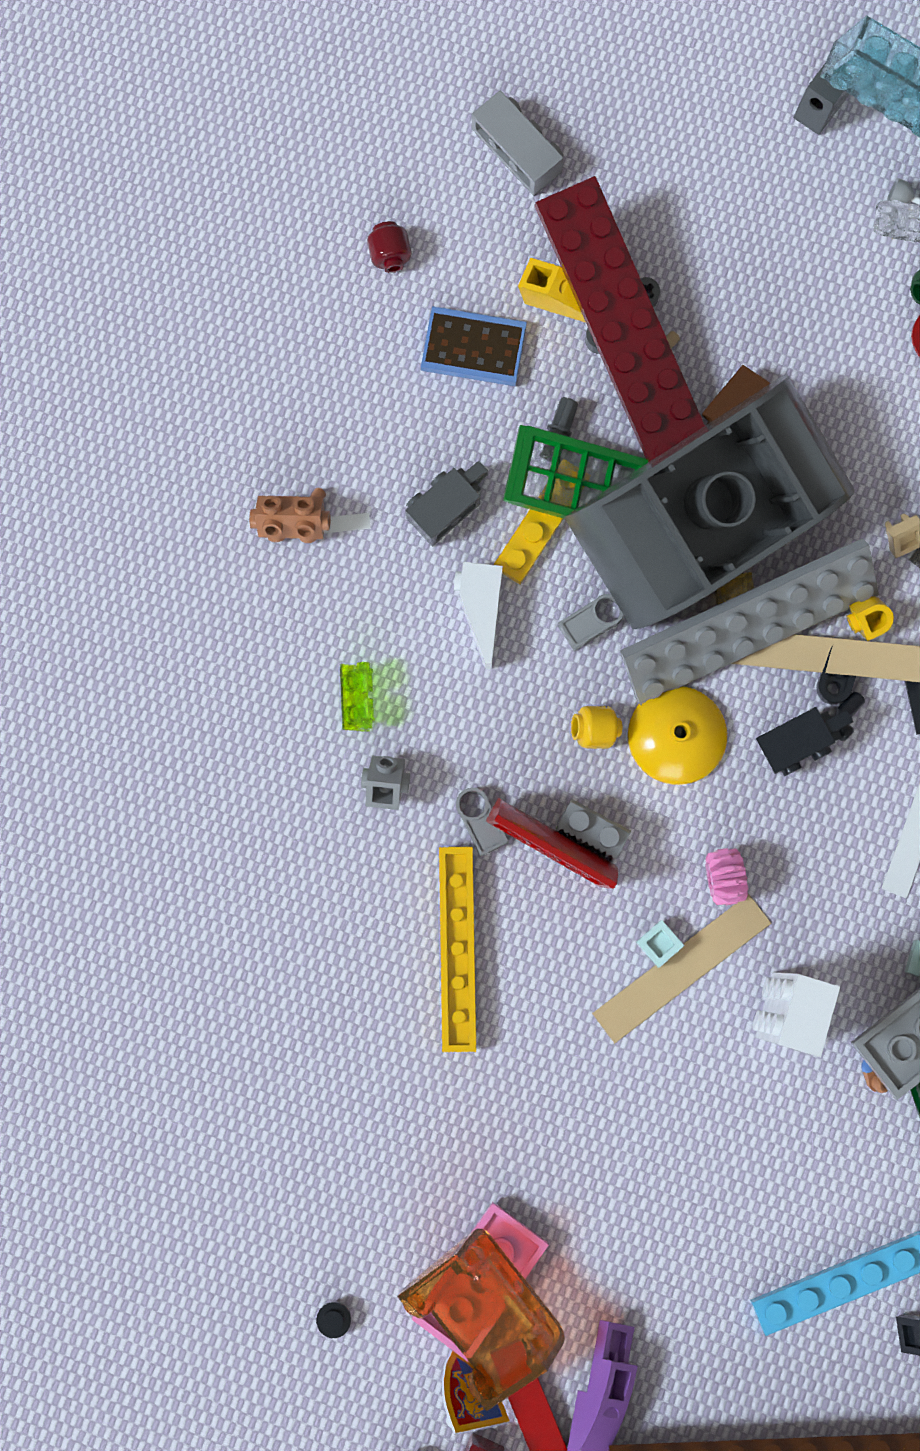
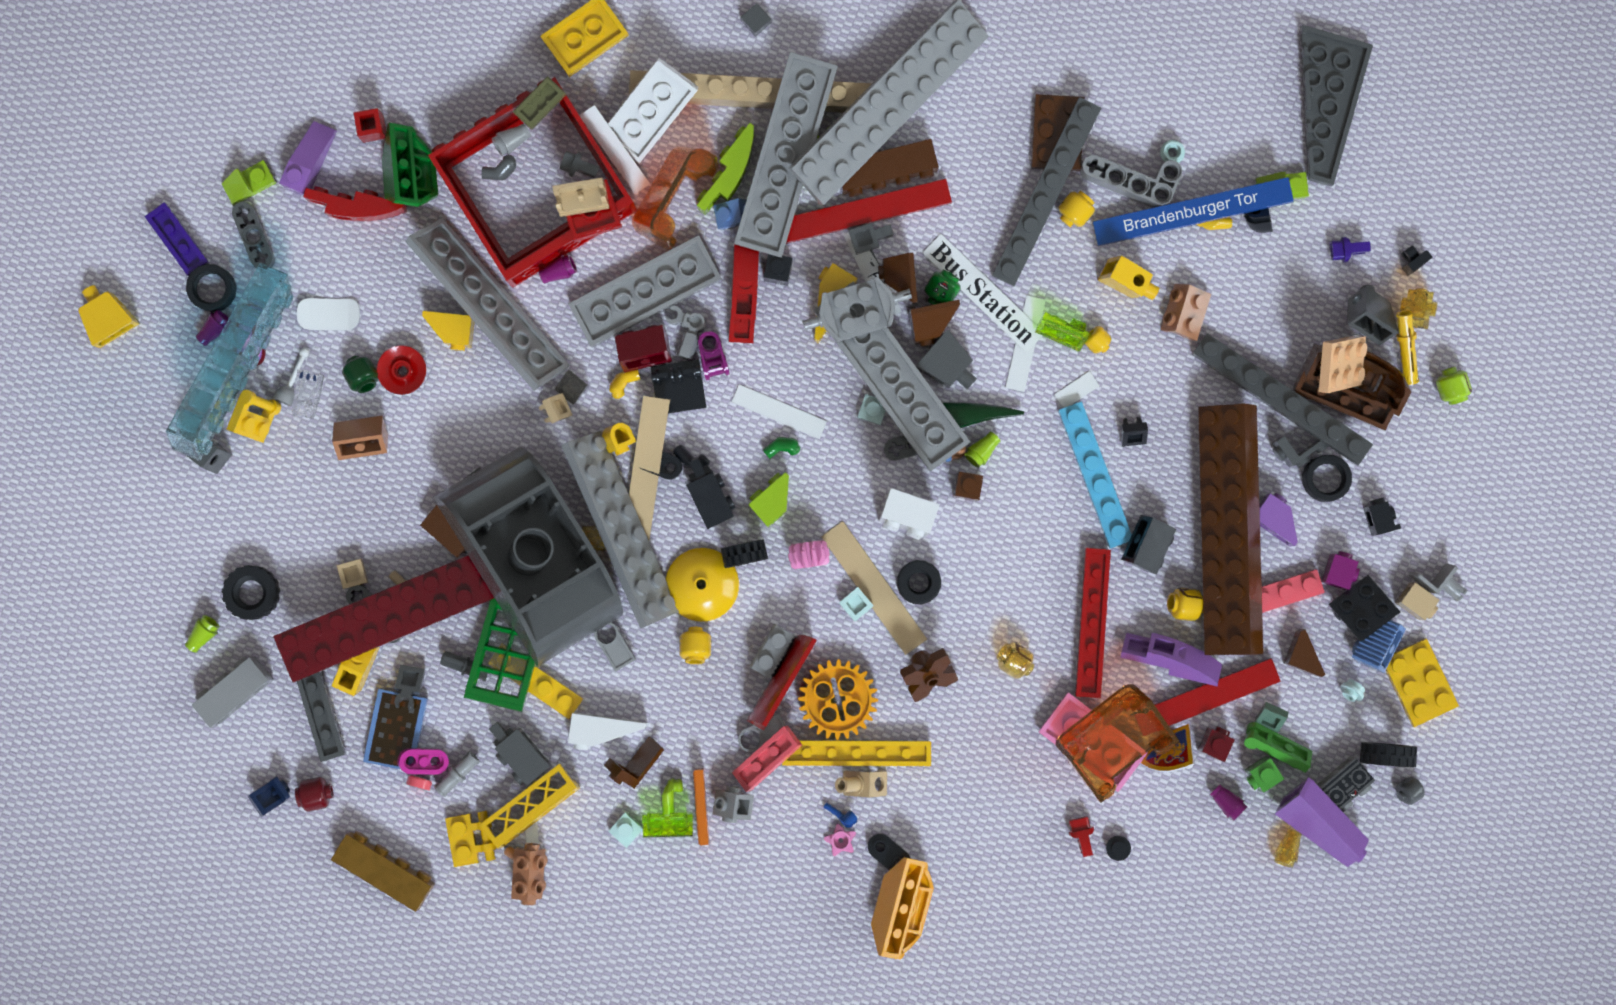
camera: 90 degrees left, 5 degrees up
(249, 1015) = (901, 907): none -> light orange wedge
(292, 335) = (383, 871): none -> pearl gold brick
(321, 997) = (890, 853): none -> black plate
(332, 436) = (463, 840): none -> yellow plate
(348, 929) = (847, 837): none -> bright pink plate
(349, 643) = (626, 829): none -> light aqua plate
(357, 1267) = (1081, 830): none -> red piece
(367, 939) = (847, 819): none -> blue hand
(368, 525) = (536, 813): none -> yellow fence
(381, 741) = (701, 806): none -> orange tile
(385, 193) = (270, 796): none -> dark blue bracket
(396, 697) = (668, 795): none -> lime arm
(406, 376) = (419, 782): none -> coral tile
(416, 957) = (861, 784): none -> tan bracket
(418, 424) = (456, 774): none -> light grey pin
(432, 655) = (637, 766): none -> reddish brown bracket
(434, 379) = (421, 762): none -> dark pink plate
(448, 826) = (767, 758): none -> coral plate
(490, 252) = (321, 717): none -> dark grey plate
(535, 358) = (408, 683): none -> dark grey plate
(538, 951) = (815, 704): none -> light orange gear
(571, 1044) = (927, 672): none -> reddish brown plant
(591, 104) = (202, 632): none -> lime cone
(591, 1168) = (1015, 660): none -> clear yellow head
(638, 137) = (235, 581): none -> black tyre
(647, 1278) = (1092, 623): none -> red plate
(674, 284) = (352, 573): none -> tan plate
(678, 1414) = (1185, 604): none -> yellow head
(694, 1051) = (928, 594): none -> black tyre
(724, 788) = (744, 553): none -> black tyre
(761, 1359) = (1149, 544): none -> black brick
(795, 826) = (771, 502): none -> lime slope
(830, 1097) = (968, 486): none -> reddish brown brick
(853, 285) = (360, 437): none -> nougat brick
(865, 146) = (249, 423): none -> yellow plate
(869, 1006) = (905, 453): none -> dark grey beam
(872, 837) = (782, 444): none -> green arm
(879, 1114) = (981, 450): none -> lime cone

